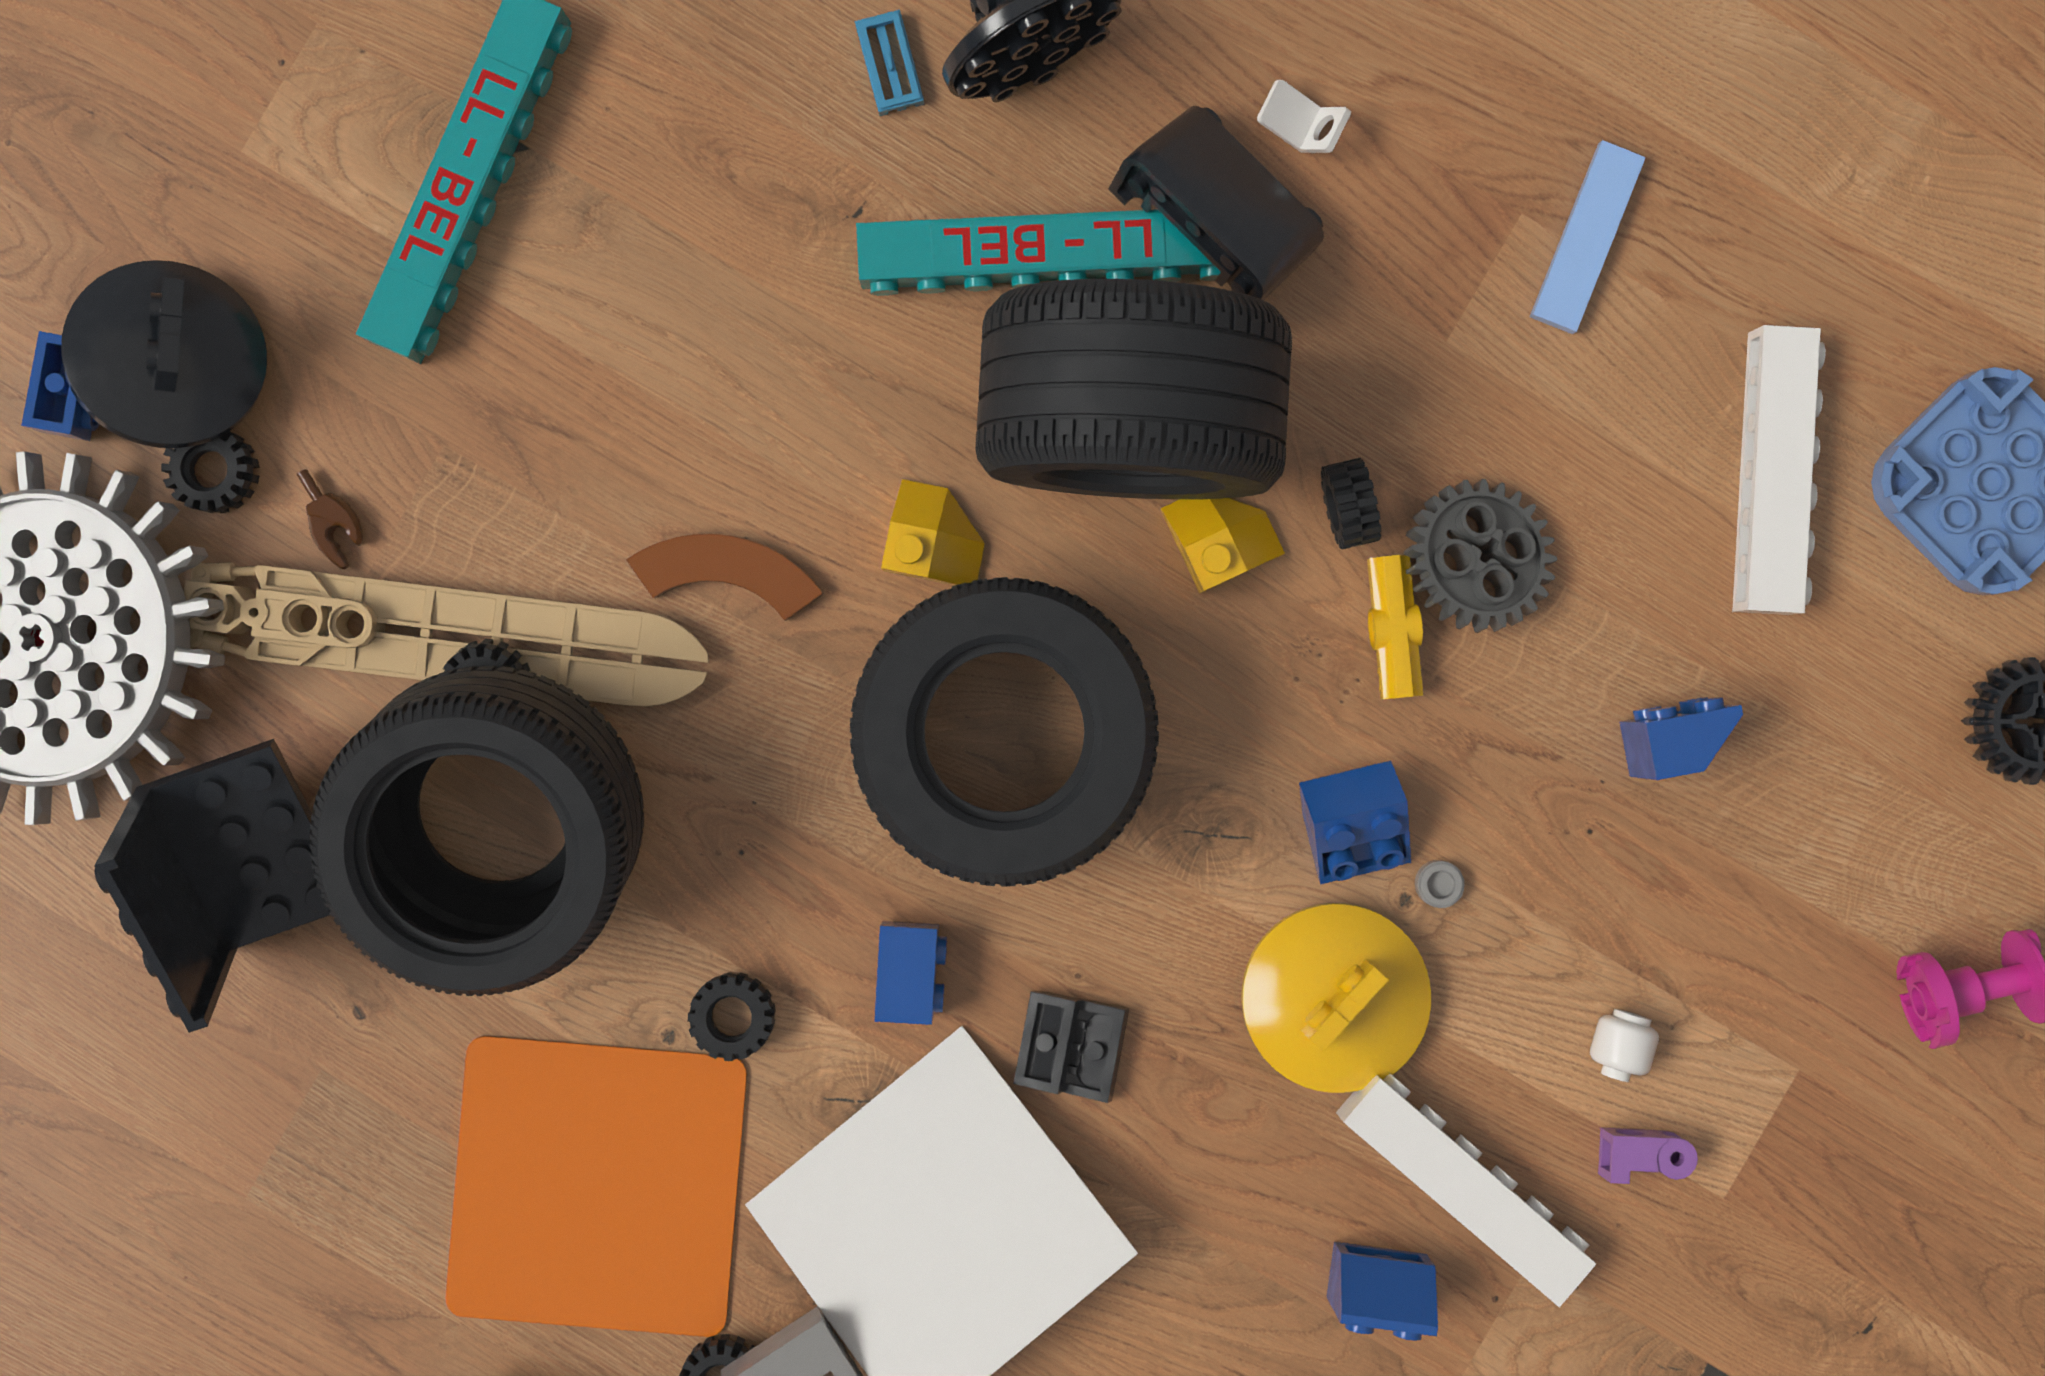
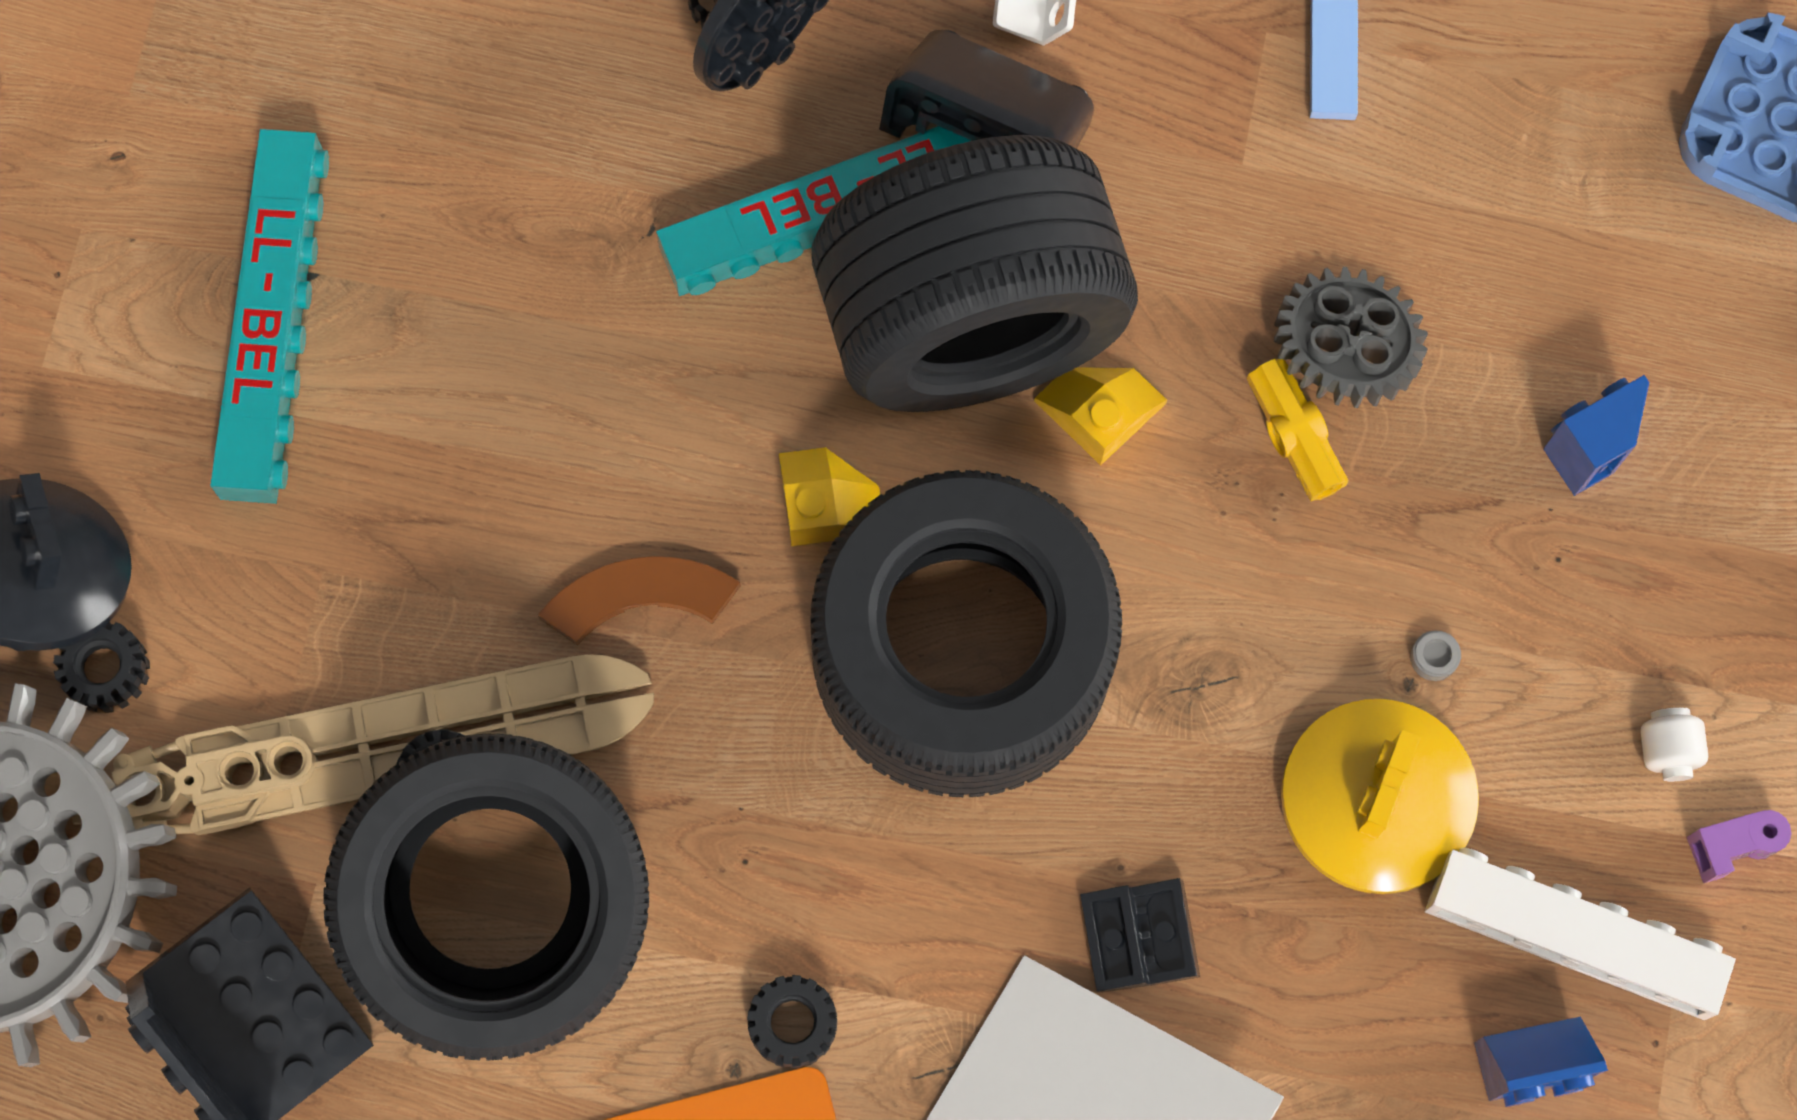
camera: 20 degrees left, 15 degrees down
(325, 515) = (227, 674): reddish brown hand -> none
(899, 101) = (655, 119): dark azure tile -> none
(908, 973) = (953, 912): blue brick -> none
(1351, 503) = (1211, 327): black tyre -> none
(1356, 822) = (1333, 621): blue slope -> none
(1778, 470) = (1592, 174): white brick -> none

